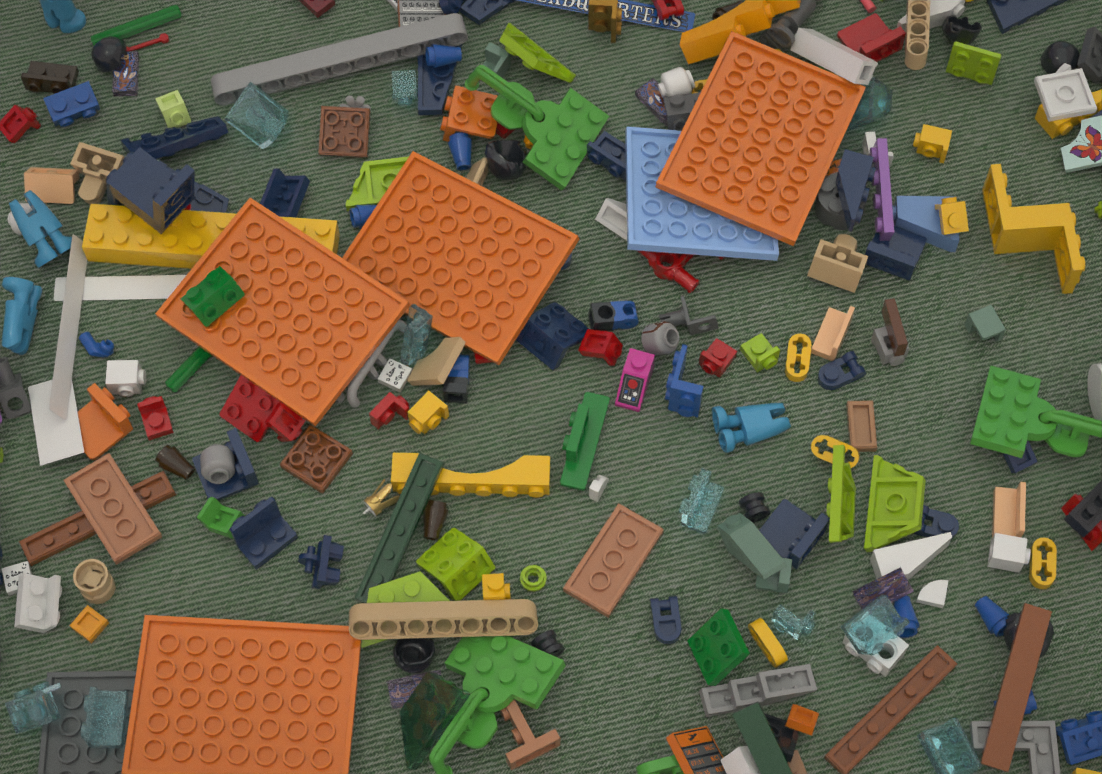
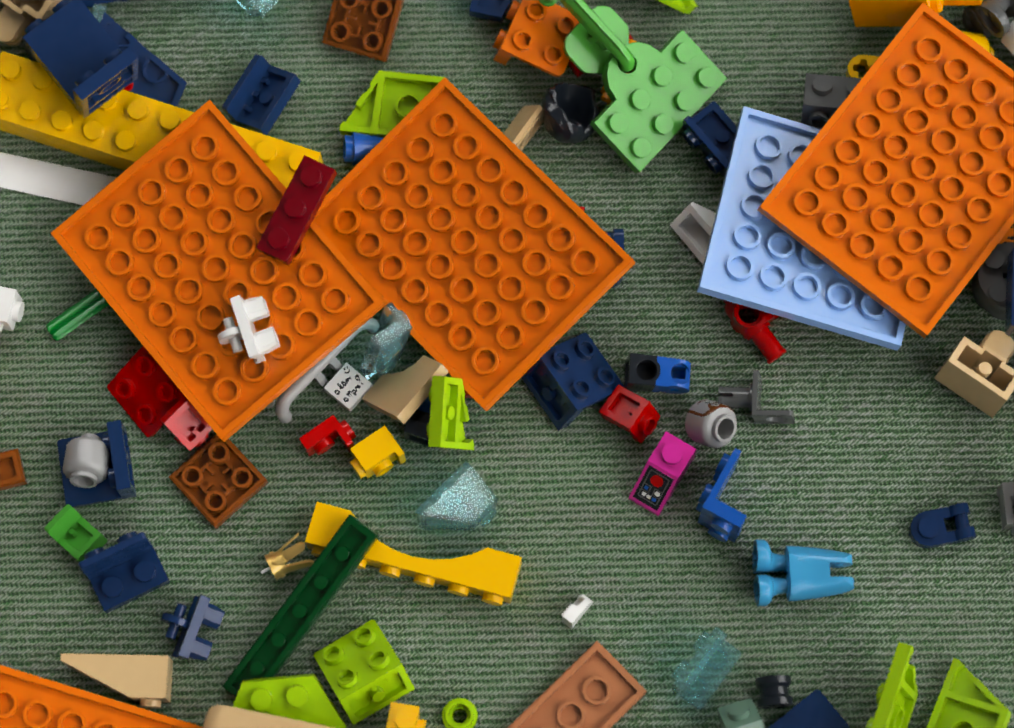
camera: 15 degrees right, 10 degrees up
(155, 417) = (23, 372): red bracket -> none
(174, 462) = (33, 441): dark brown cone -> none
(213, 296) = (128, 230): green bracket -> none
(286, 605) = (136, 677): none -> tan slope
(313, 329) = (256, 342): none -> white hips
(330, 254) = (296, 210): none -> dark red plate
(434, 519) = (350, 604): dark brown cone -> none
(460, 148) = (513, 83): blue cone -> none
(472, 371) = (448, 414): none -> lime wing
(494, 431) = (458, 503): none -> clear light blue slope
(583, 440) = (574, 540): green bracket -> none
(652, 99) = (794, 62): tile -> none
(676, 82) = (829, 55): white head -> none
(717, 358) = (781, 466): red bracket -> none
(760, 353) = (841, 473): lime bracket -> none
(803, 358) = (898, 495): yellow beam -> none
(827, 455) = (907, 632): yellow beam -> none
(832, 333) = (945, 469): light nougat panel -> none
(861, 425) = (949, 610): medium nougat tile -> none

